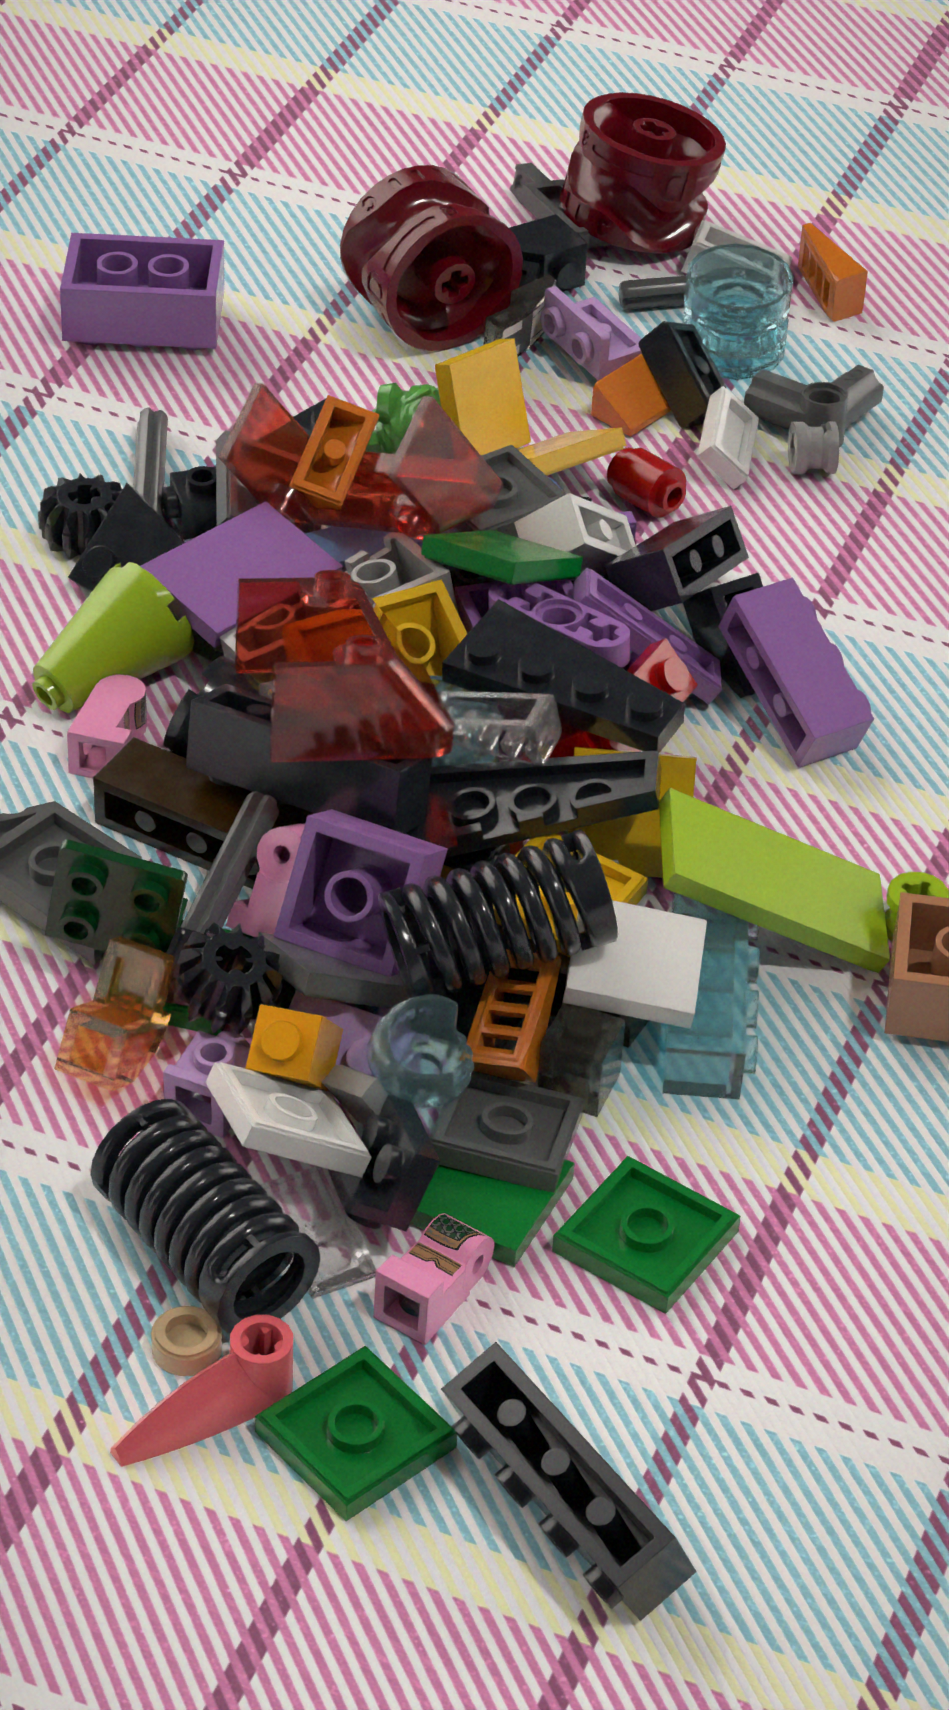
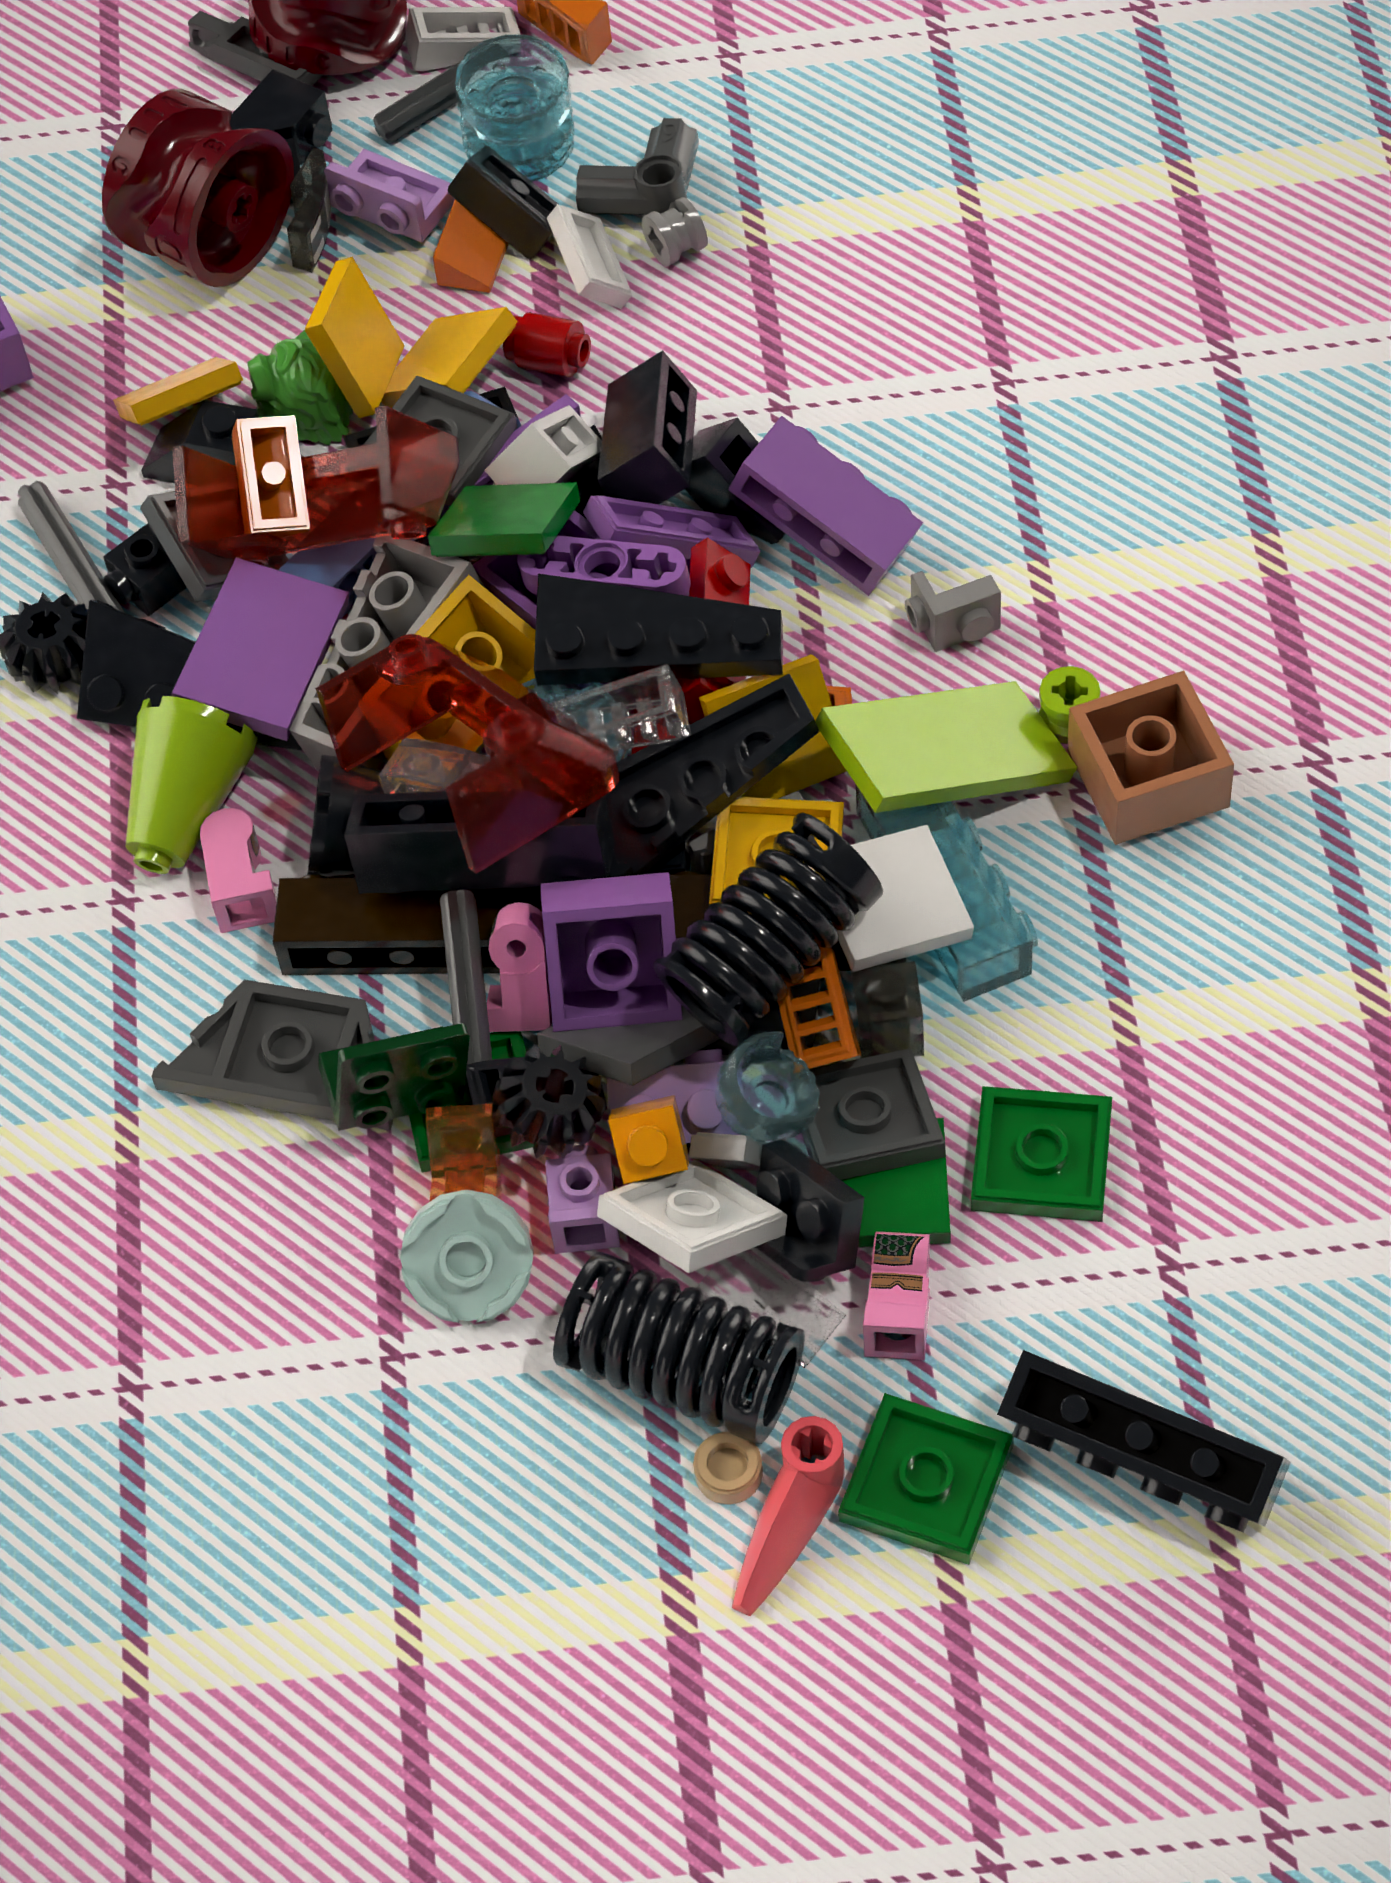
camera: 20 degrees left, 15 degrees up
(77, 1069) = (466, 1256): none -> light aqua tile
(309, 389) = (178, 391): none -> yellow tile
(861, 801) = (955, 614): none -> light grey bracket

